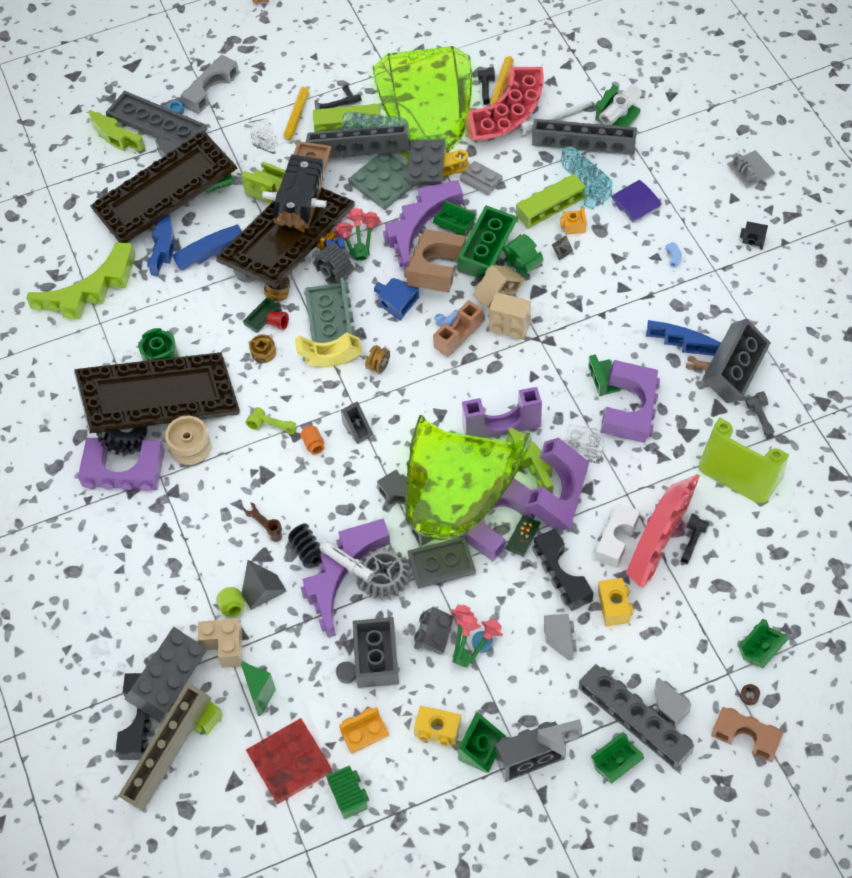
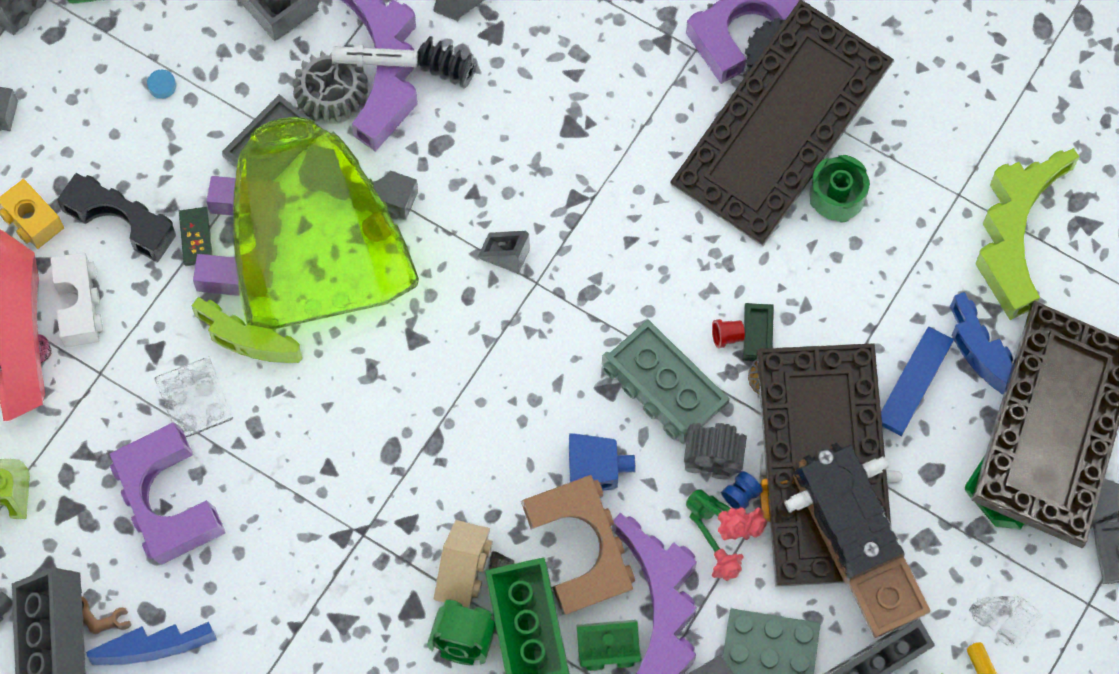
camera: 140 degrees right, 10 degrees up
(188, 440) = (693, 95): tan wheel -> none
(258, 417) = (638, 185): lime brick -> none
(262, 347) = (713, 280): pearl gold wheel -> none
(266, 180) = (927, 531): lime piece -> none
(272, 526) = (499, 58): reddish brown brick -> none
(312, 440) = (544, 195): orange brick -> none
(330, 353) = (622, 319): light yellow arch -> none
(377, 359) = (546, 350): pearl gold wheel -> none
(433, 630) = (225, 59): dark grey bracket -> none
(441, 320) = (500, 477): light blue arm -> none
(449, 338) = (471, 460): nougat arch -> none
(467, 622) = (174, 58): plant -> none
(509, 316) = (410, 516): tan brick -> none
(523, 417) = (346, 330): medium lavender arch -> none
(558, 634) = (74, 137): light grey slope -> none
(572, 470) = (163, 284): medium lavender arch -> none
(600, 375) = (240, 525): green panel -> none

